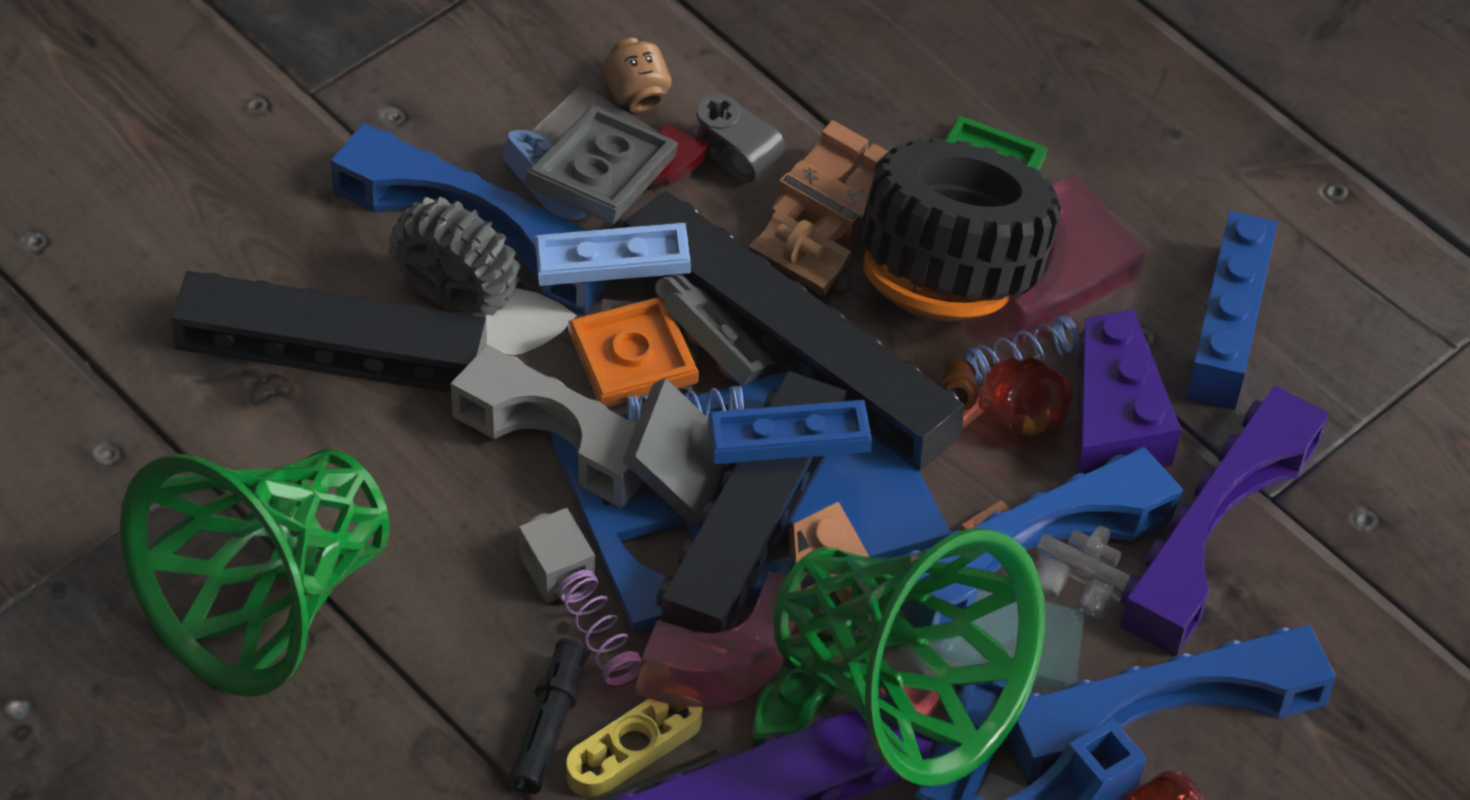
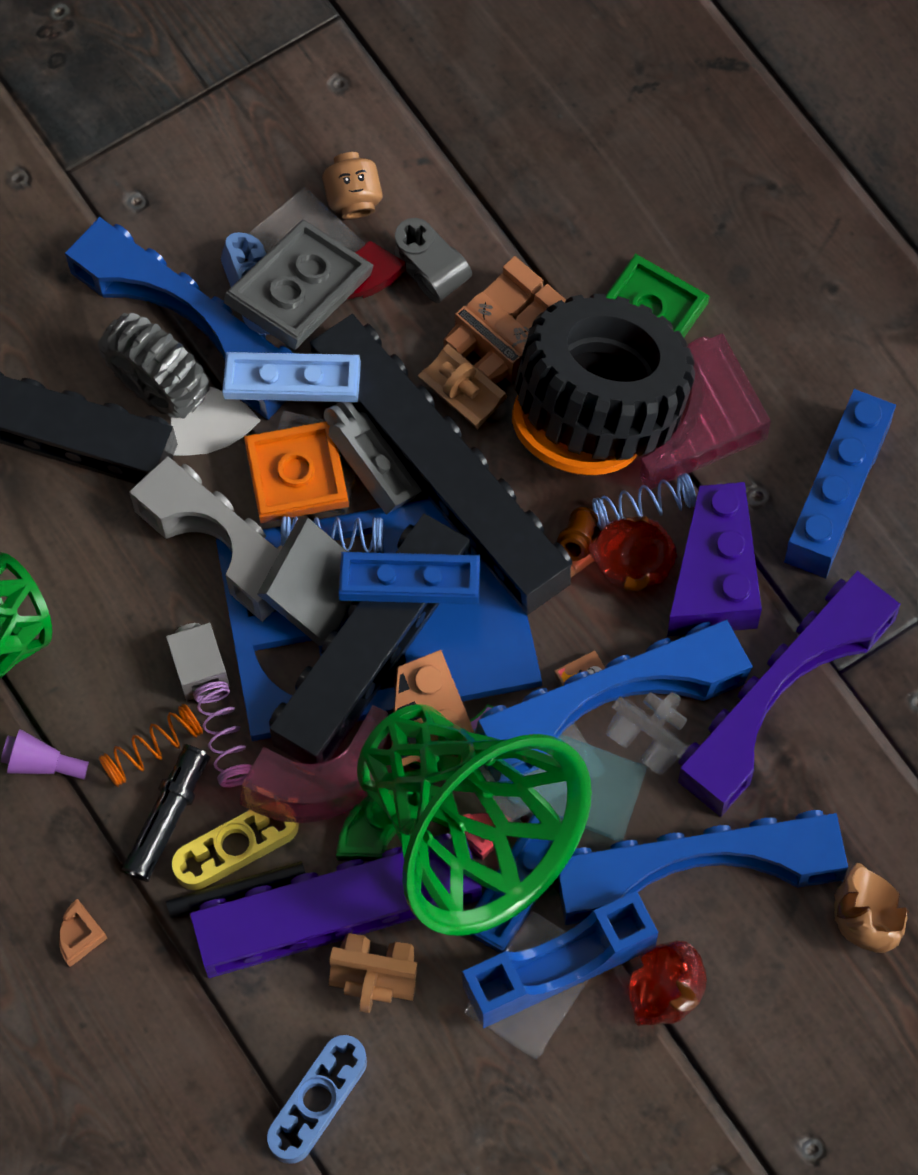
camera: 15 degrees right, 15 degrees up
(380, 673) = (31, 756): none -> medium lavender cone
(553, 621) = (188, 721): none -> orange piece
(1366, 725) = (869, 911): none -> medium nougat hair

